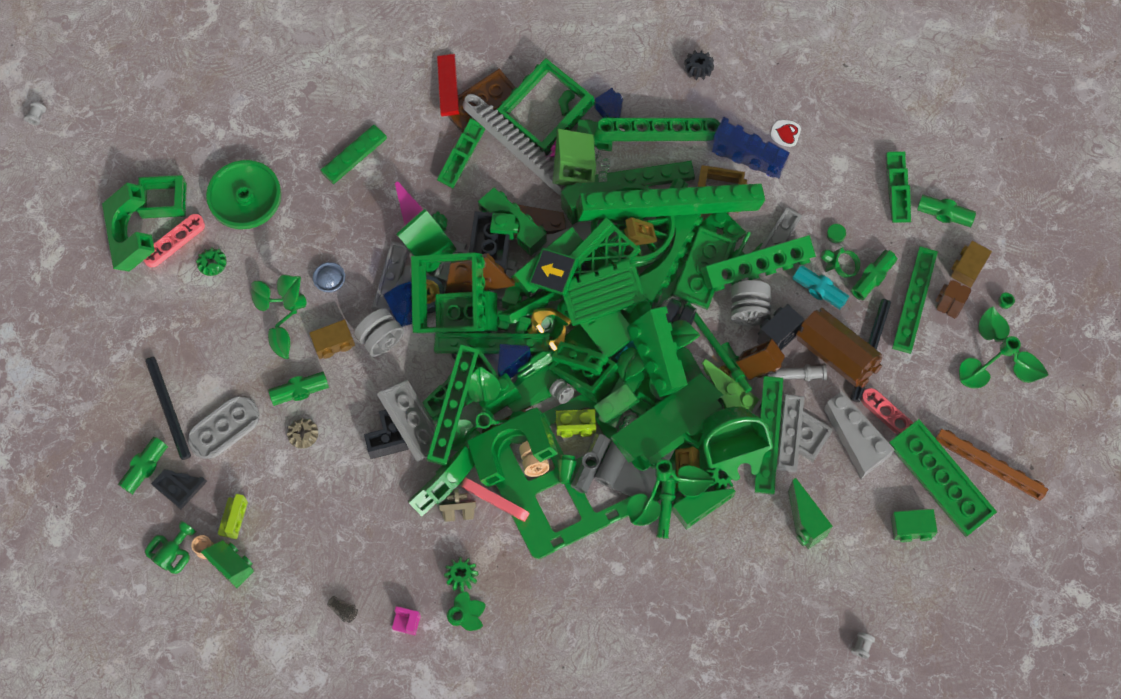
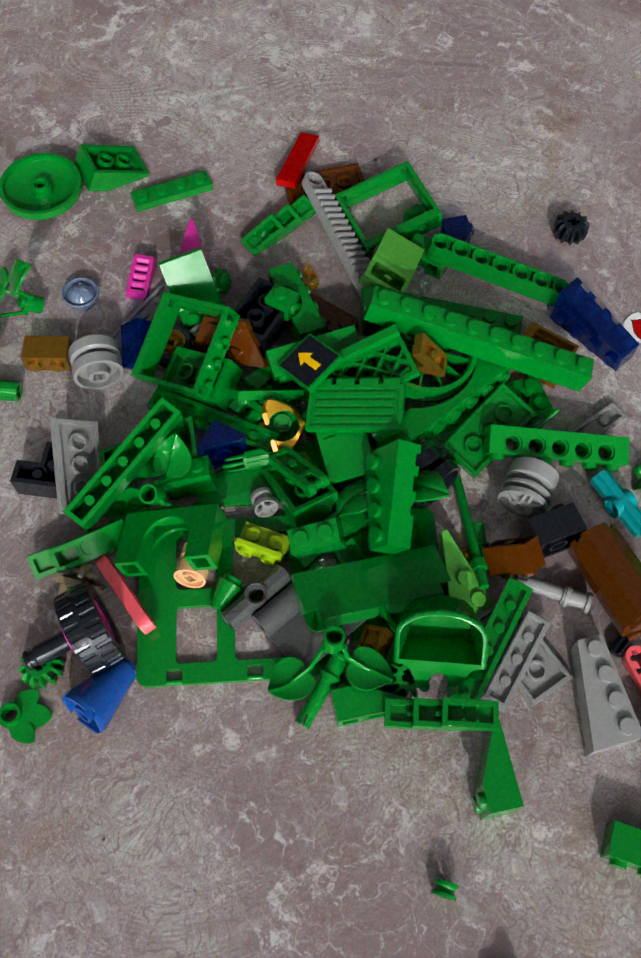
camera: 20 degrees right, 5 degrees down
(290, 152) = (109, 166): none -> green slope
(370, 232) = (142, 264): none -> dark pink slope
(485, 535) = (85, 630): none -> black wheel
(511, 191) = (313, 280): none -> clear yellow arm
(515, 575) = (100, 695): none -> blue cone
(755, 490) = (442, 714): none -> green slope
(802, 601) = (444, 889): none -> green bush

